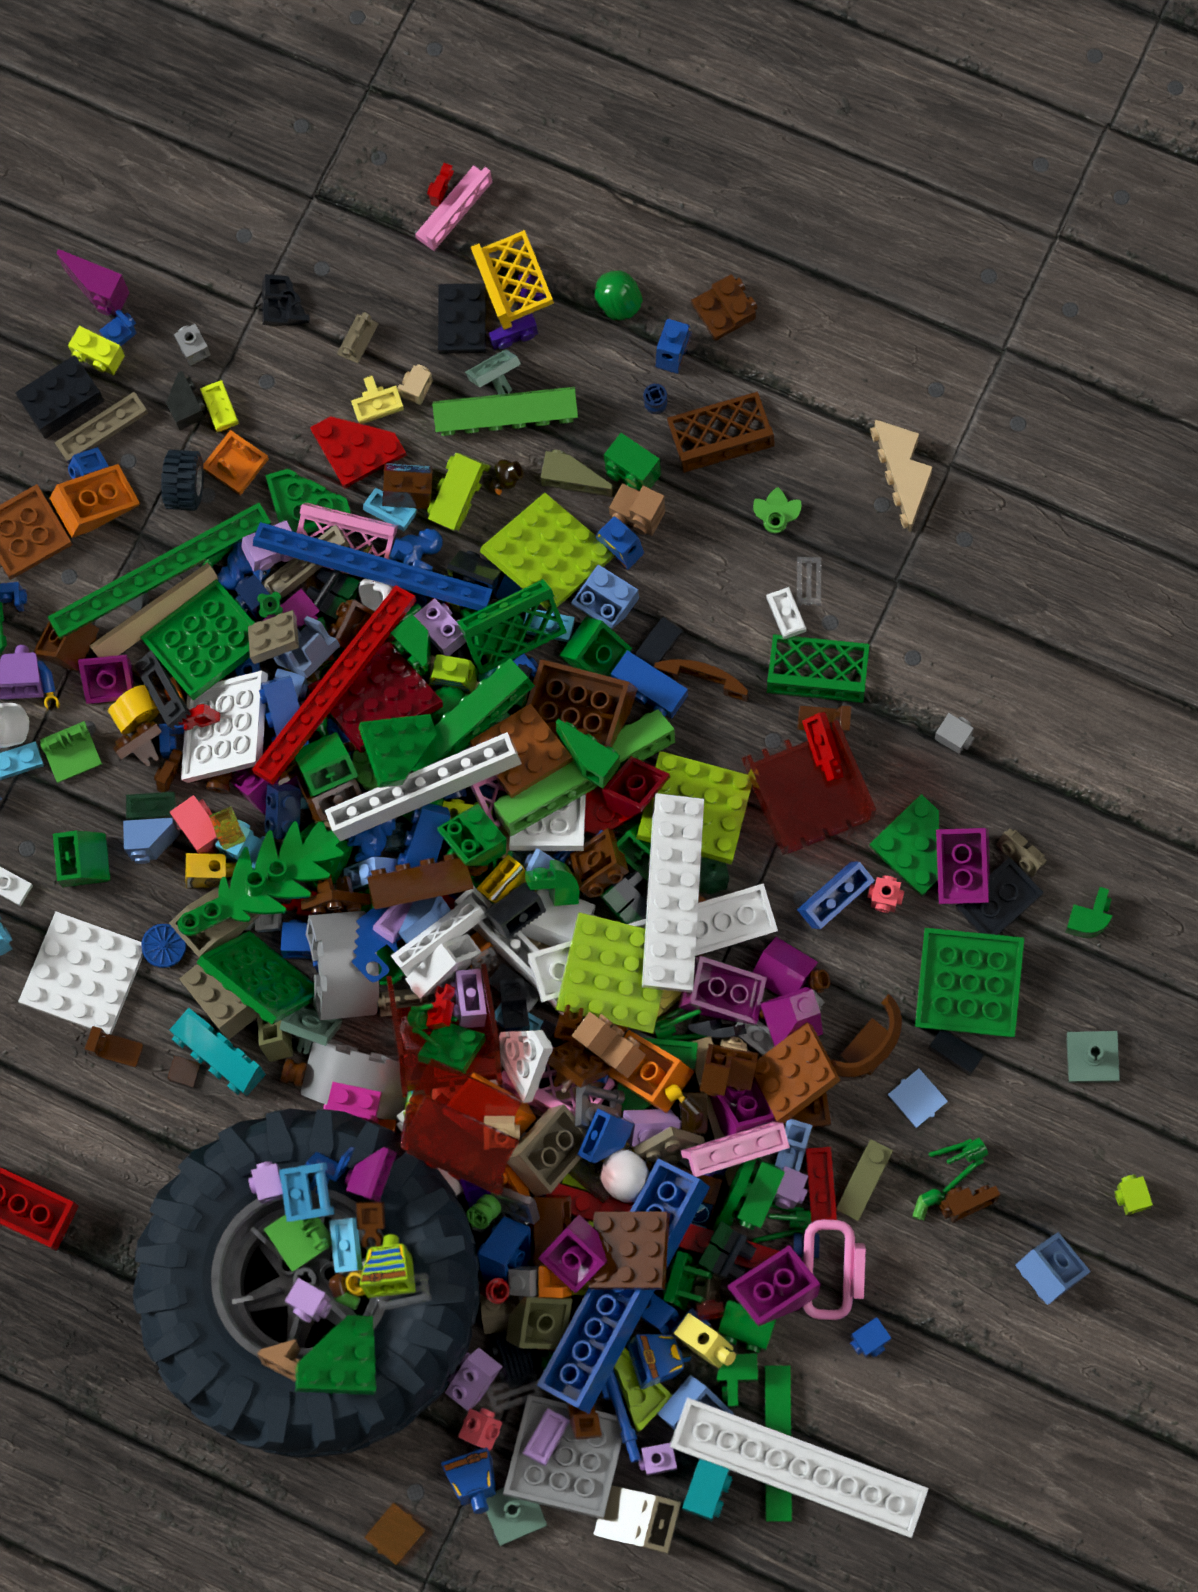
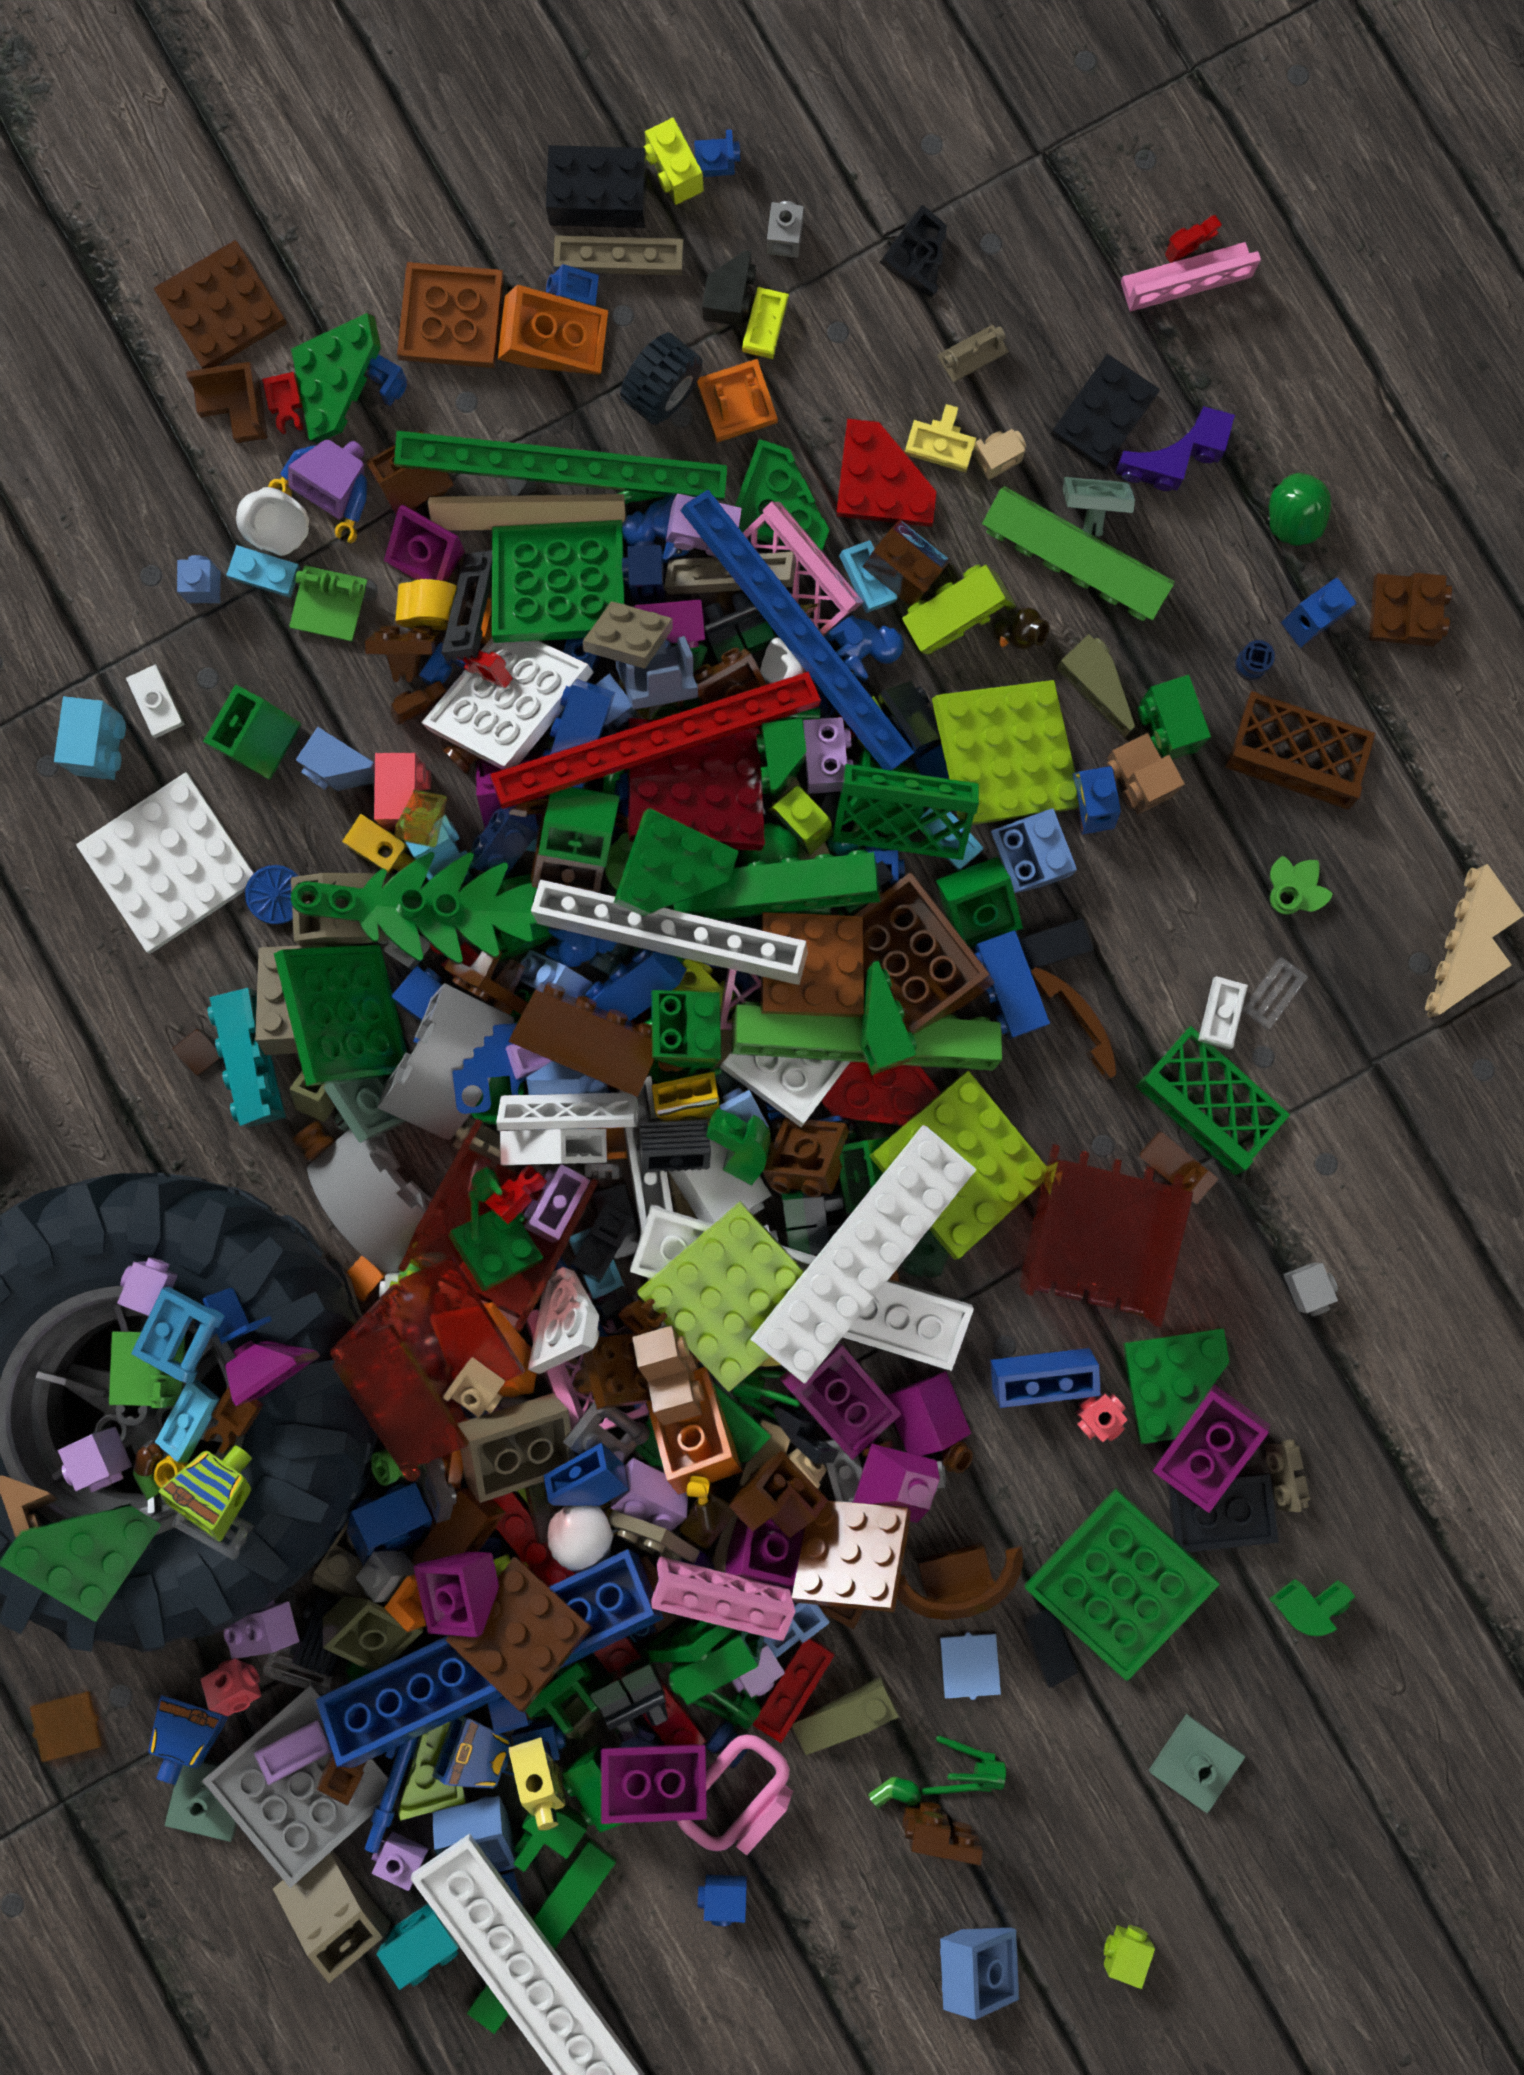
camera: 30 degrees right, 10 degrees up
(100, 285) = (732, 88): magenta slope -> none
(113, 1047) = (139, 970): reddish brown bracket -> none
(150, 805) = (370, 727): clear green plate -> none
(264, 599) = (643, 596): green plate -> none
(354, 1100) = (344, 1230): dark pink bracket -> none
(492, 280) = (1168, 397): yellow fence -> none
(495, 1290) = (344, 1559): red cone -> none
(634, 787) = (909, 1097): dark red slope -> none
(709, 1310) = (567, 1749): clear red plate -> none
(823, 746) = (1154, 1200): red hinge -> none

